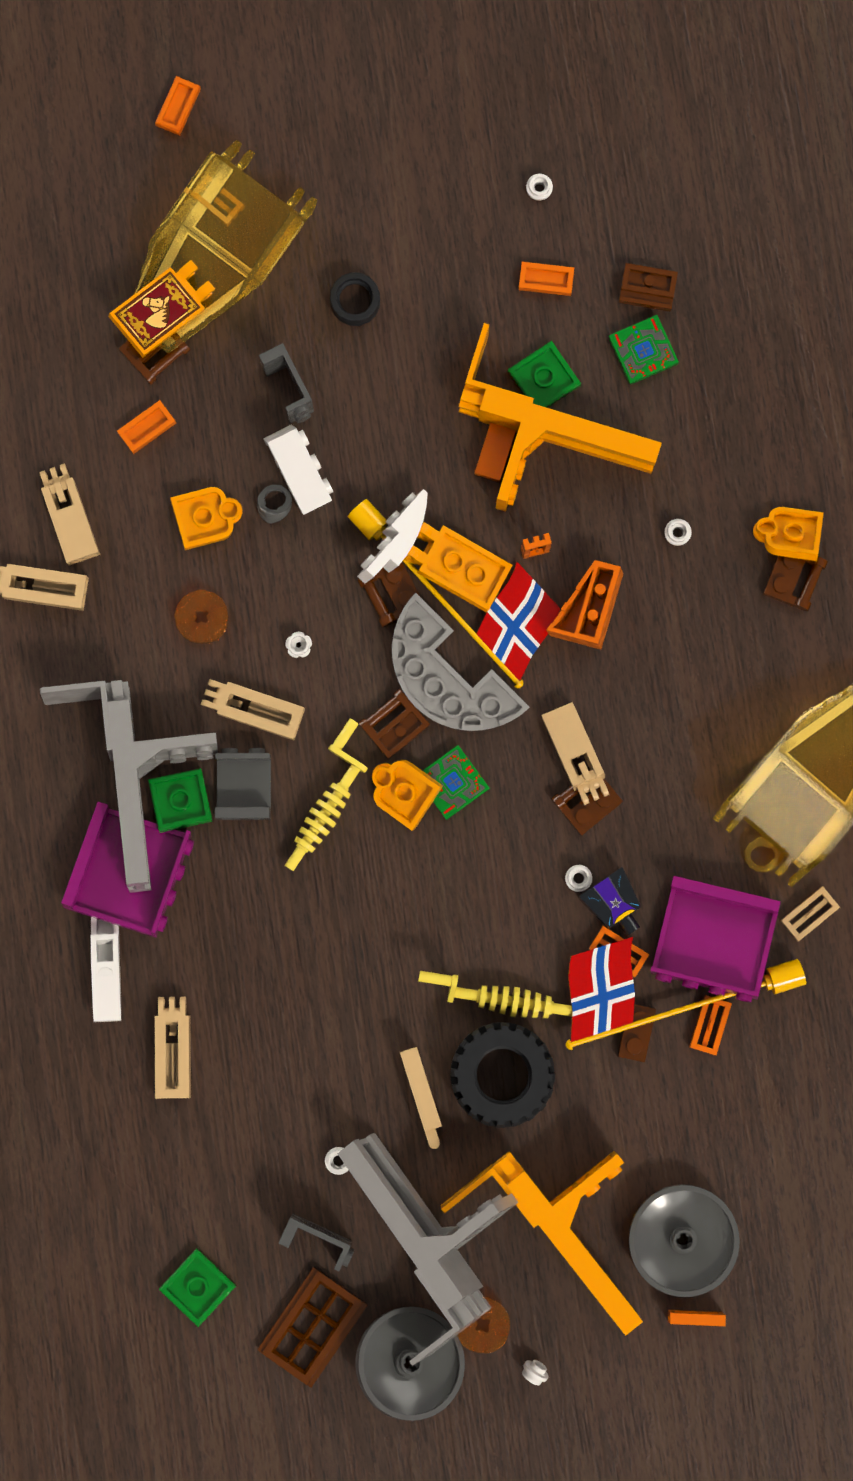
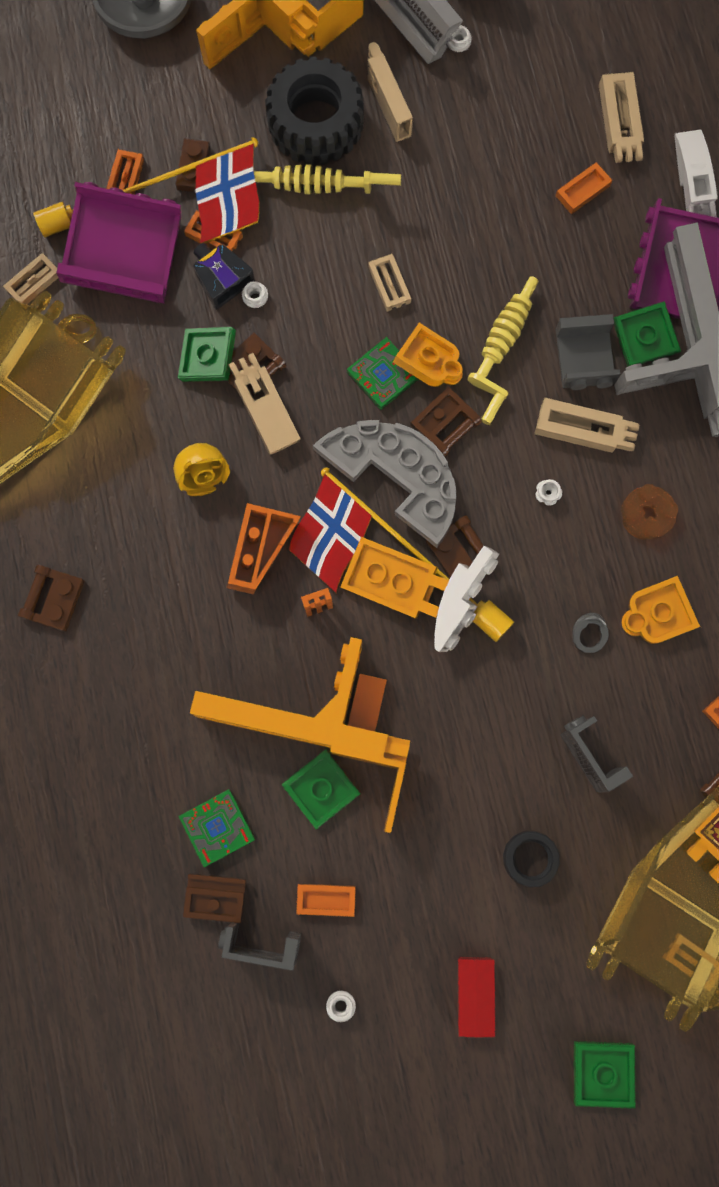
camera: 175 degrees right, 5 degrees down
(223, 972) = (583, 188): none -> orange tile
(299, 468) = (572, 667): white wedge -> none
(309, 113) = (604, 1074): none -> green tile
(417, 185) = (476, 997): none -> red piece
(444, 904) = (396, 302): none -> tan tile
(608, 231) = (284, 961): none -> dark grey panel
(631, 813) = (207, 354): none -> green tile
(644, 692) = (200, 468): none -> yellow cylinder
(681, 524) = (166, 629): white plate -> none
(791, 532) = (53, 639): light orange plate -> none

